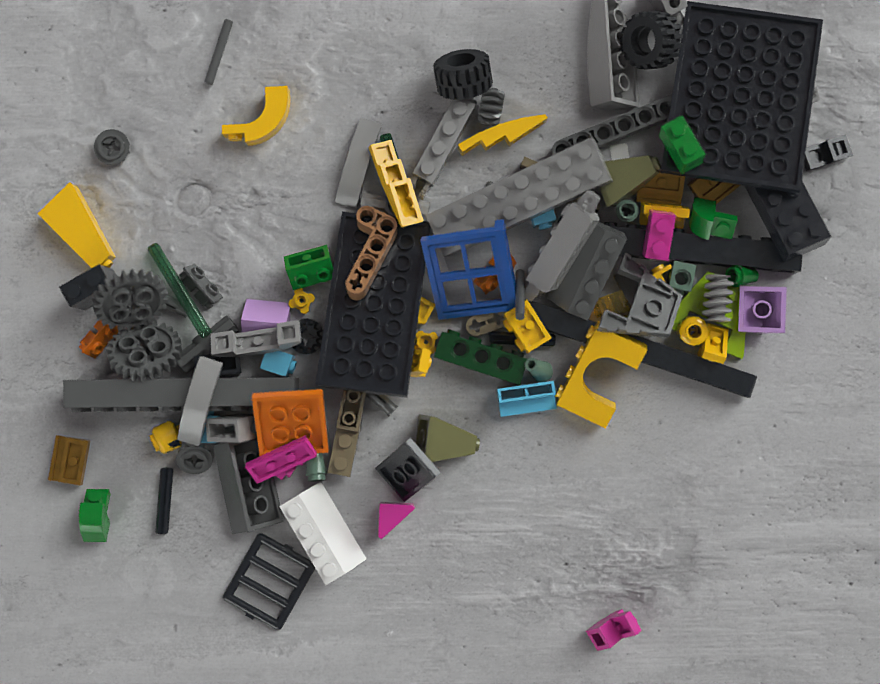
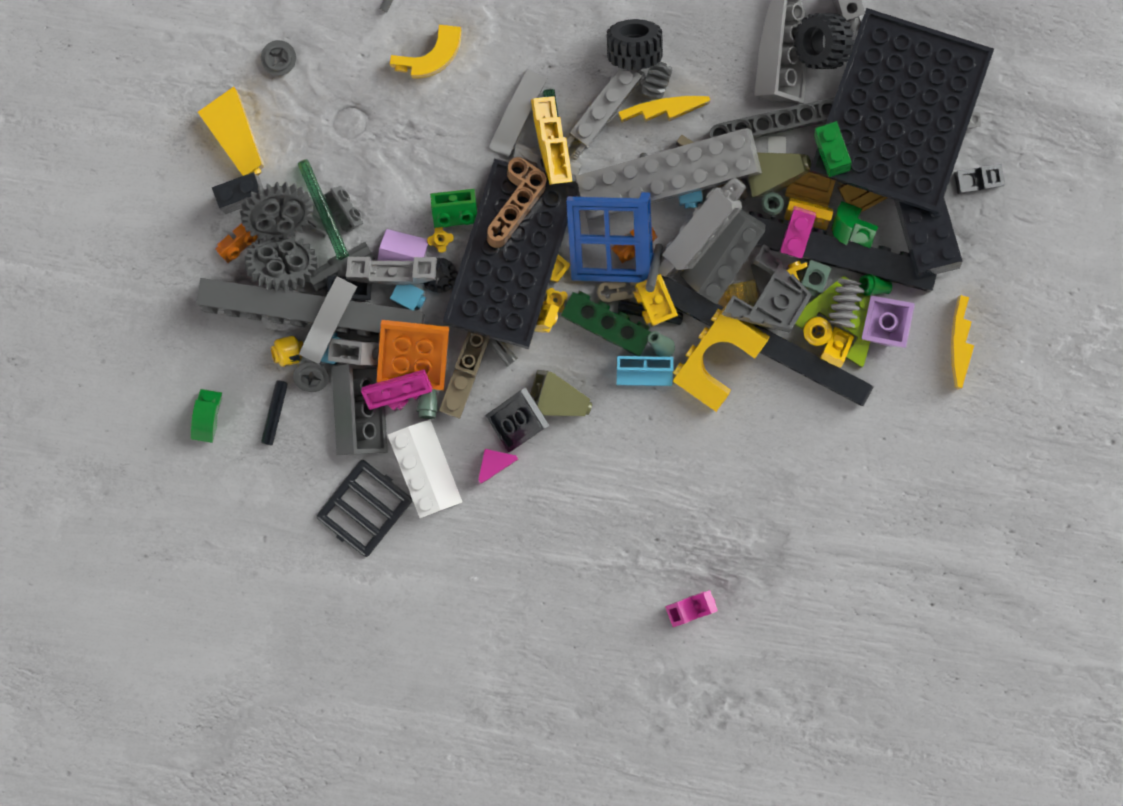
camera: 10 degrees right, 0 degrees up
(69, 460) = (188, 357): pearl gold plate -> none
(837, 327) = (960, 350): none -> yellow slope

